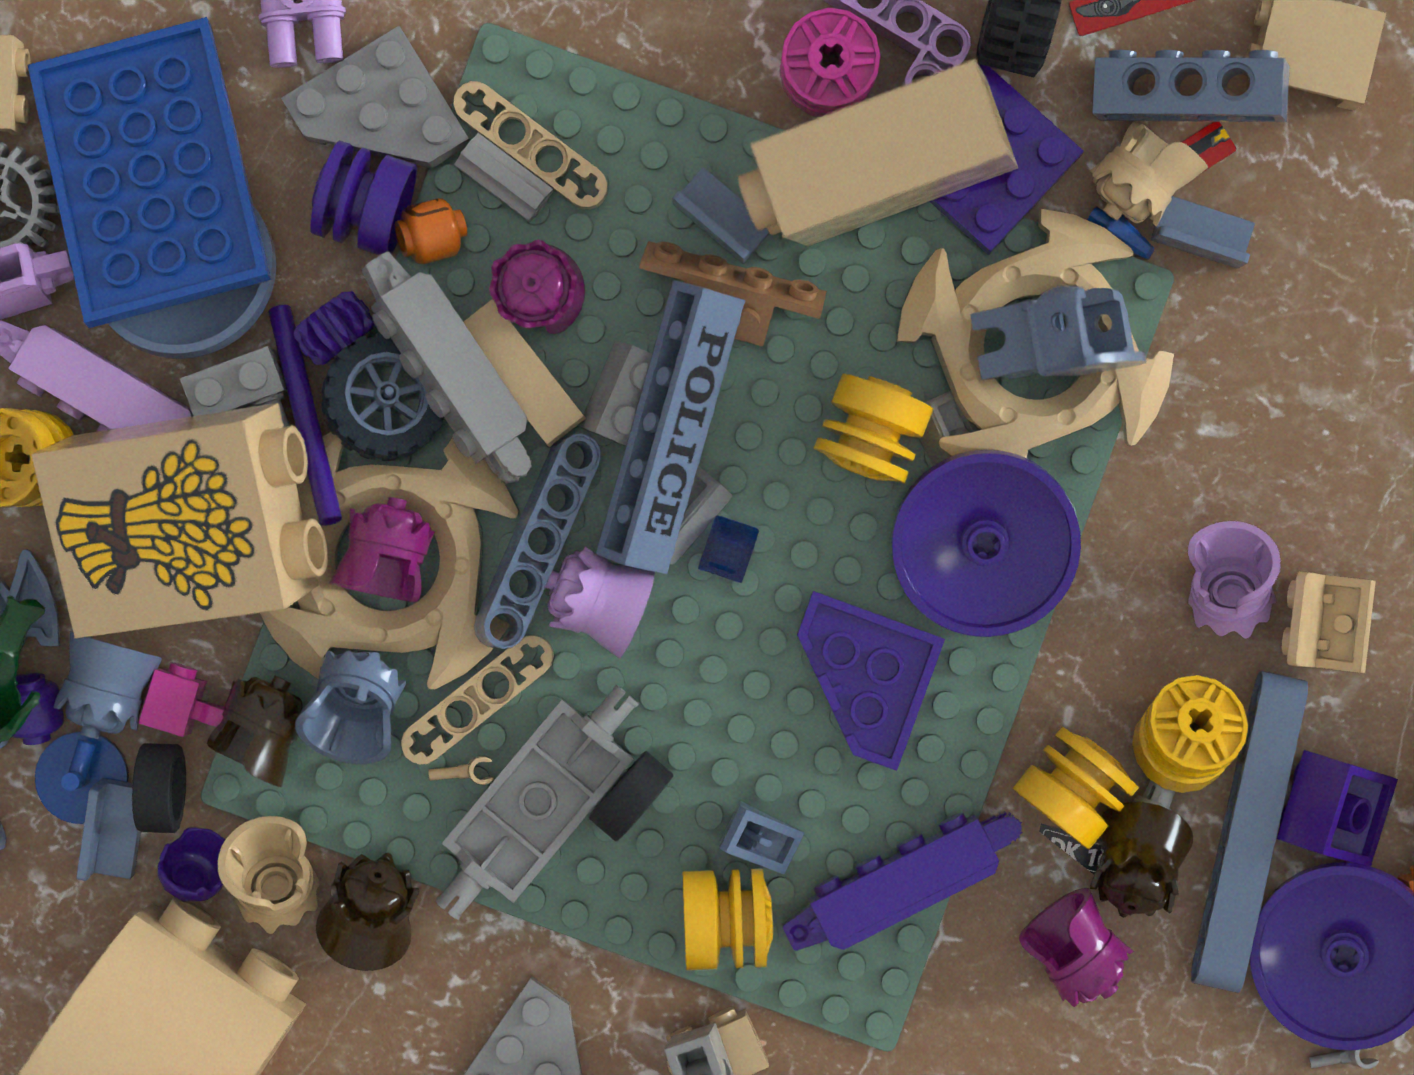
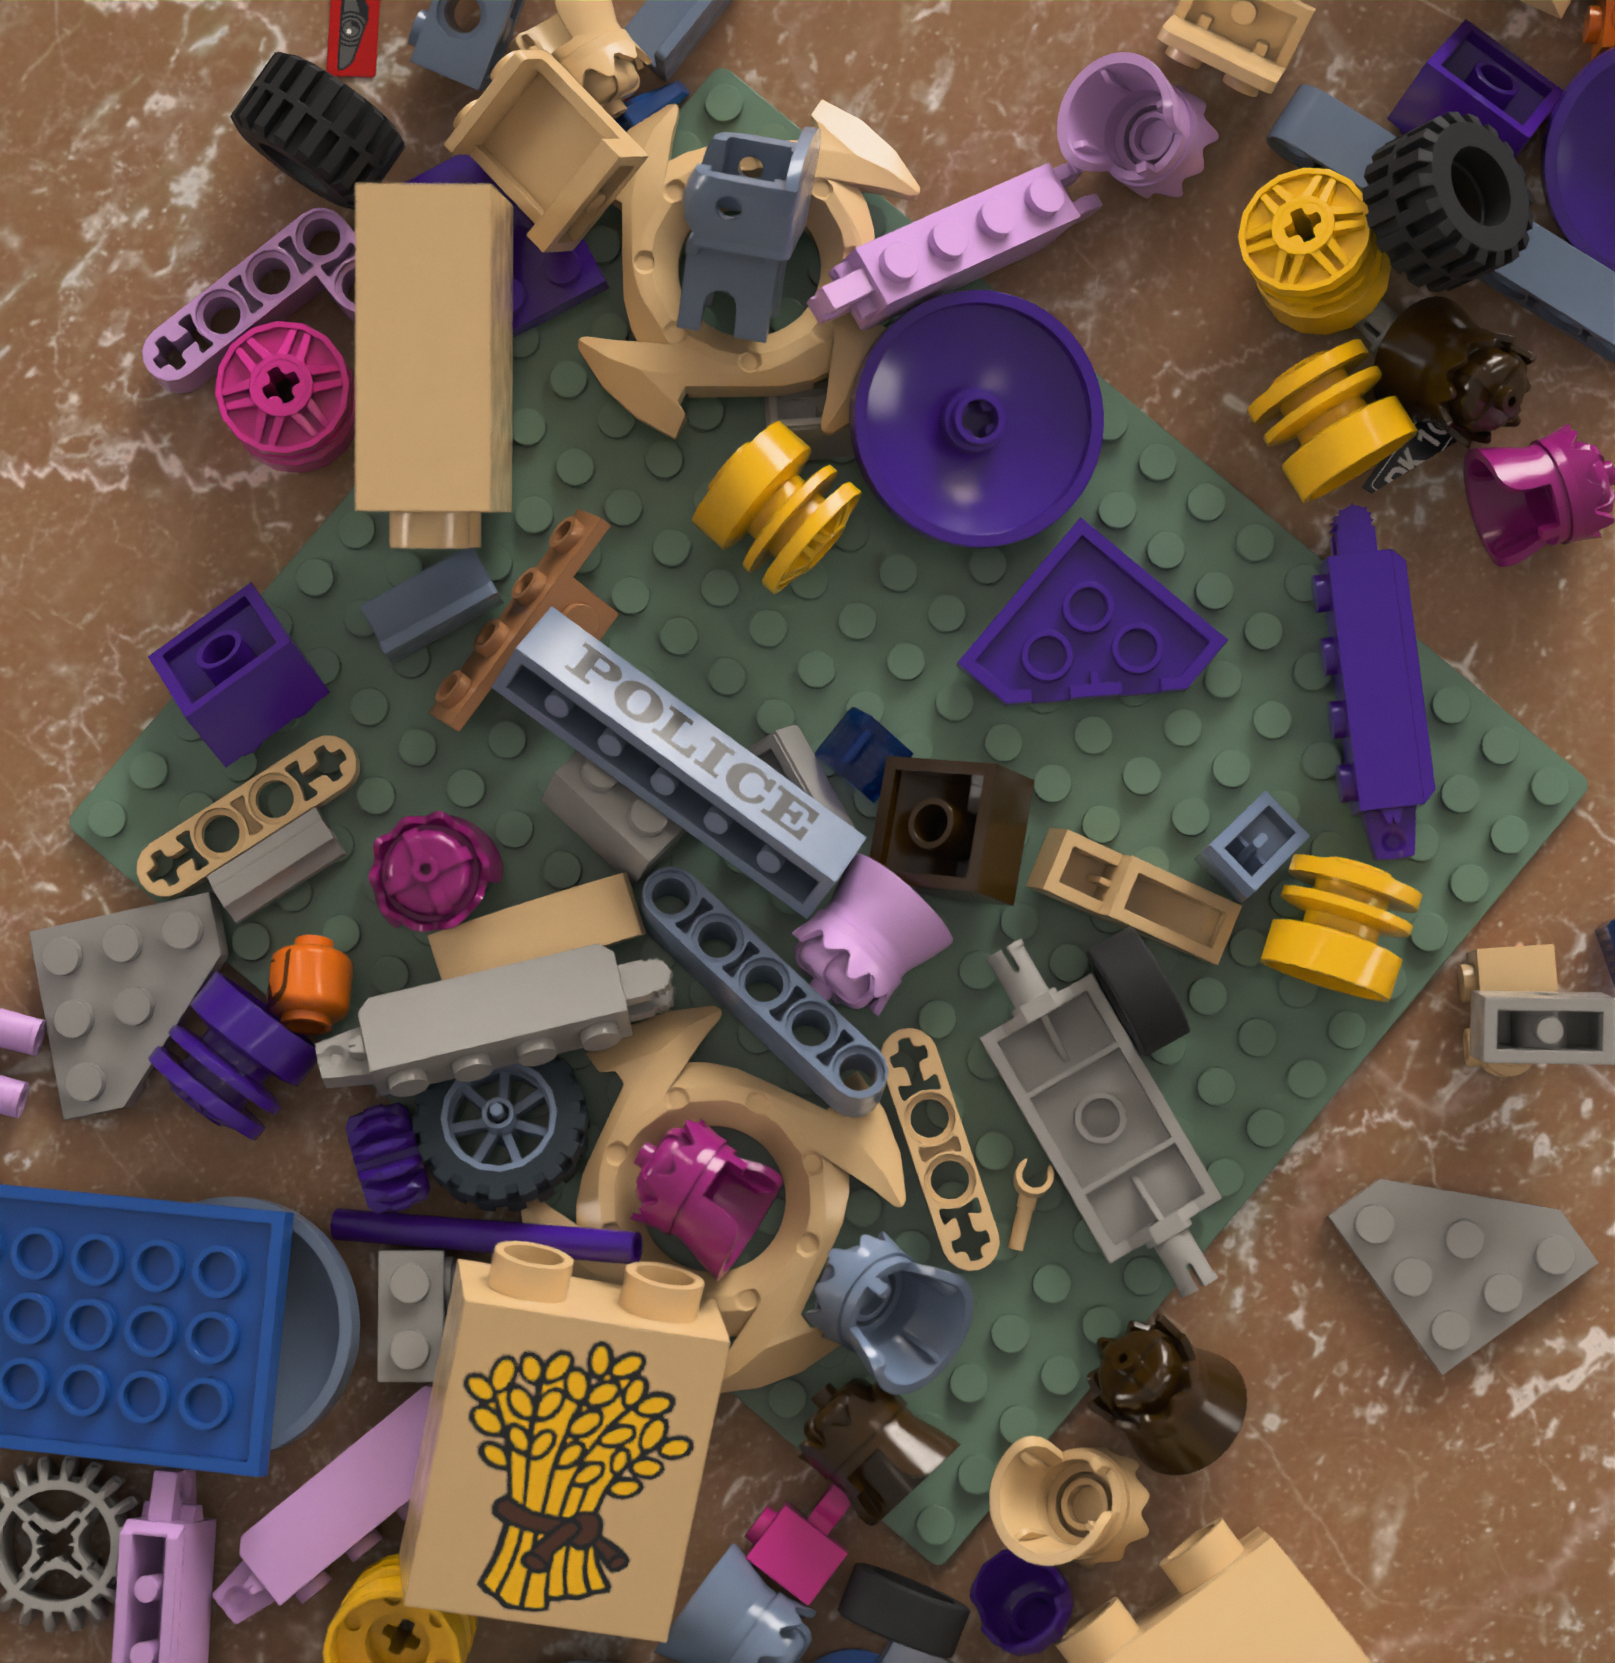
camera: 65 degrees left, 5 degrees down
(624, 101) = (238, 675): none -> dark purple slope
(697, 628) = (953, 827): none -> dark brown slope
(697, 769) = (1133, 894): none -> tan slope
(1066, 177) = (547, 147): none -> tan panel
(1099, 483) = (953, 247): none -> lavender hinge
(1253, 815) = (1448, 202): none -> black tyre

